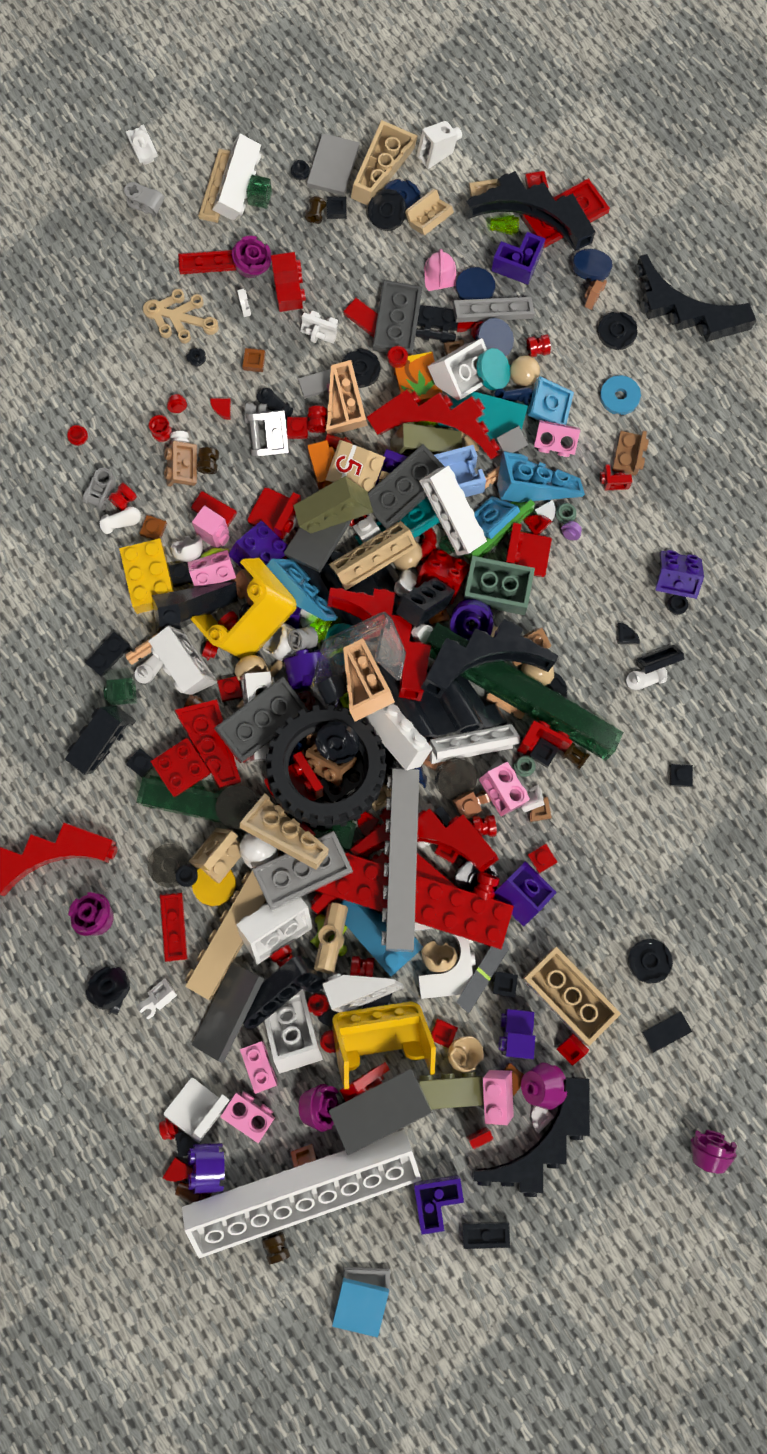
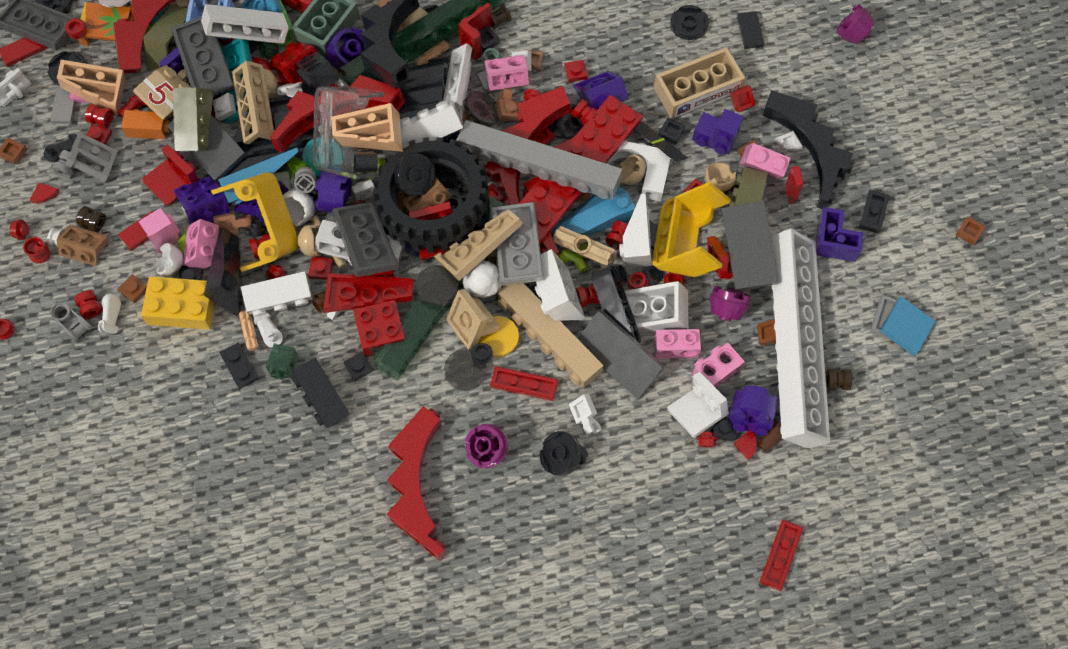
camera: 70 degrees left, 10 degrees down
(74, 1239) = (781, 555): none -> red tile
(500, 1351) = (970, 230): none -> dark orange plate
(544, 1086) = (766, 123): magenta cone -> none

